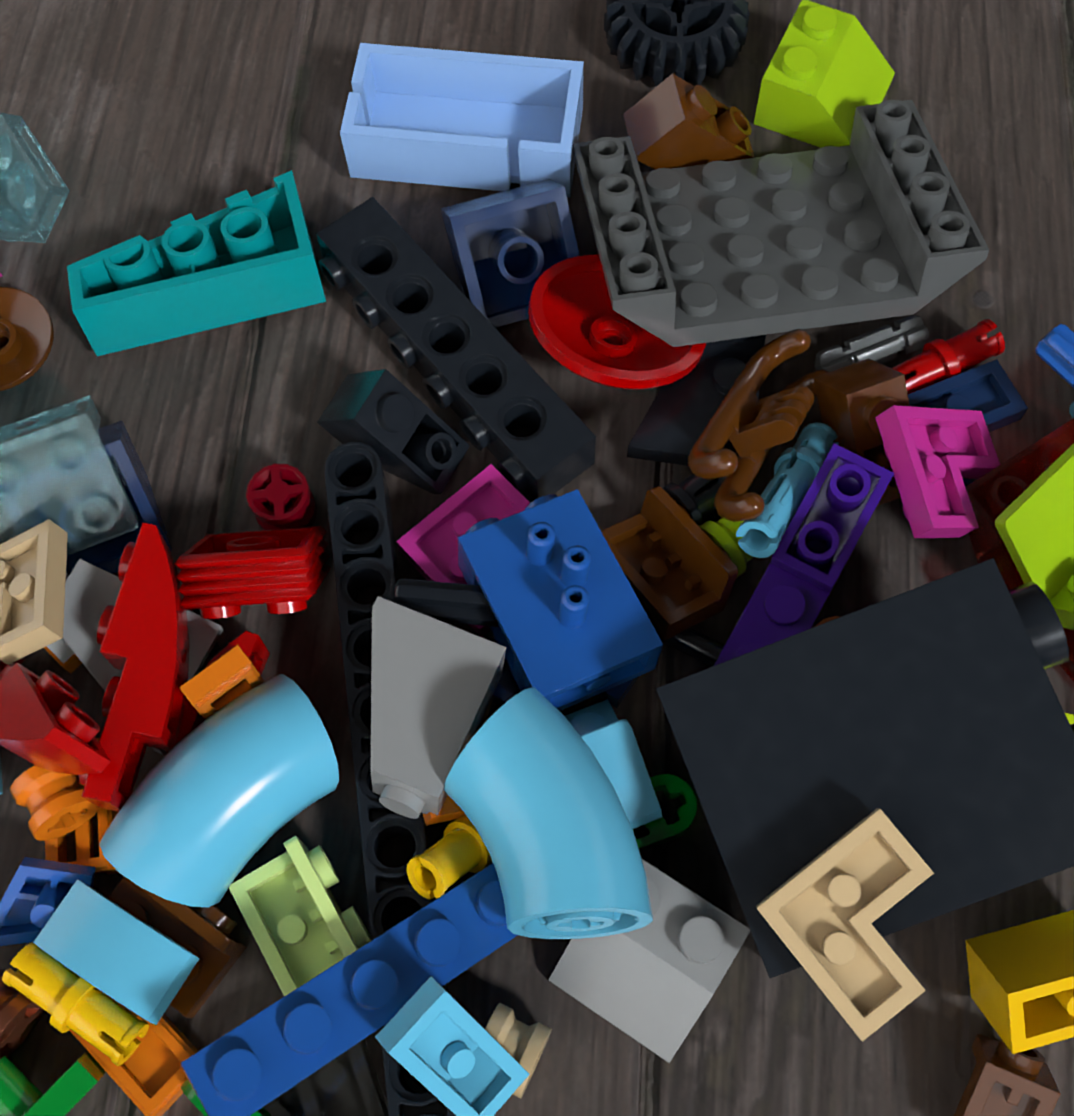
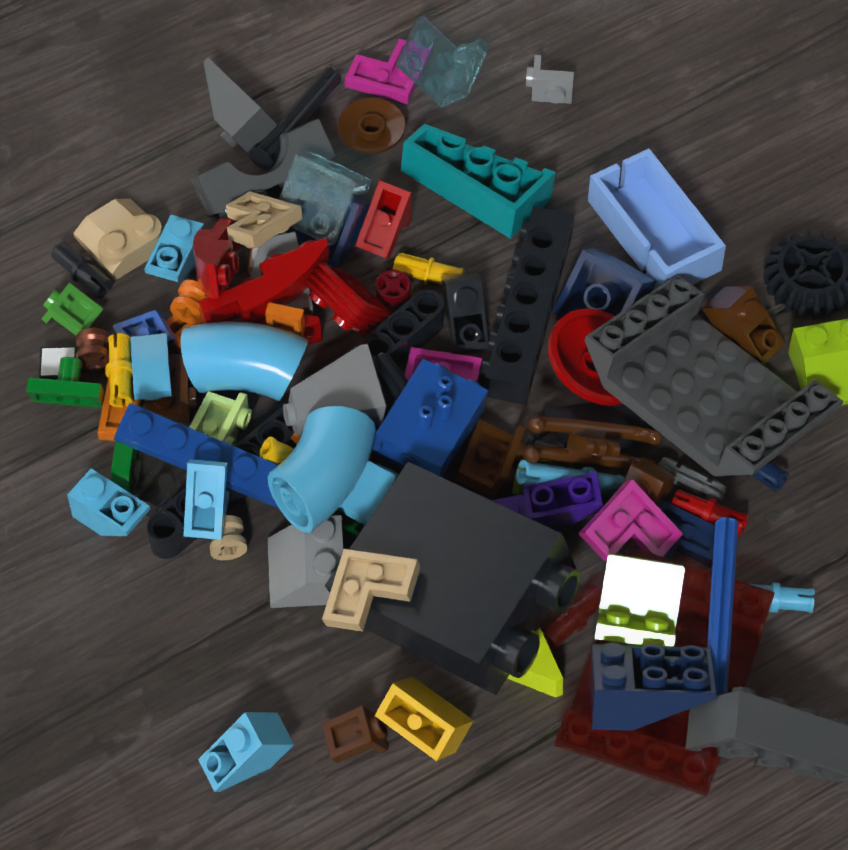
camera: 50 degrees right, 10 degrees down
(140, 96) = (549, 84): none -> light grey bracket
(162, 427) = (385, 217): none -> red slope
(281, 435) = (424, 269): none -> yellow axle

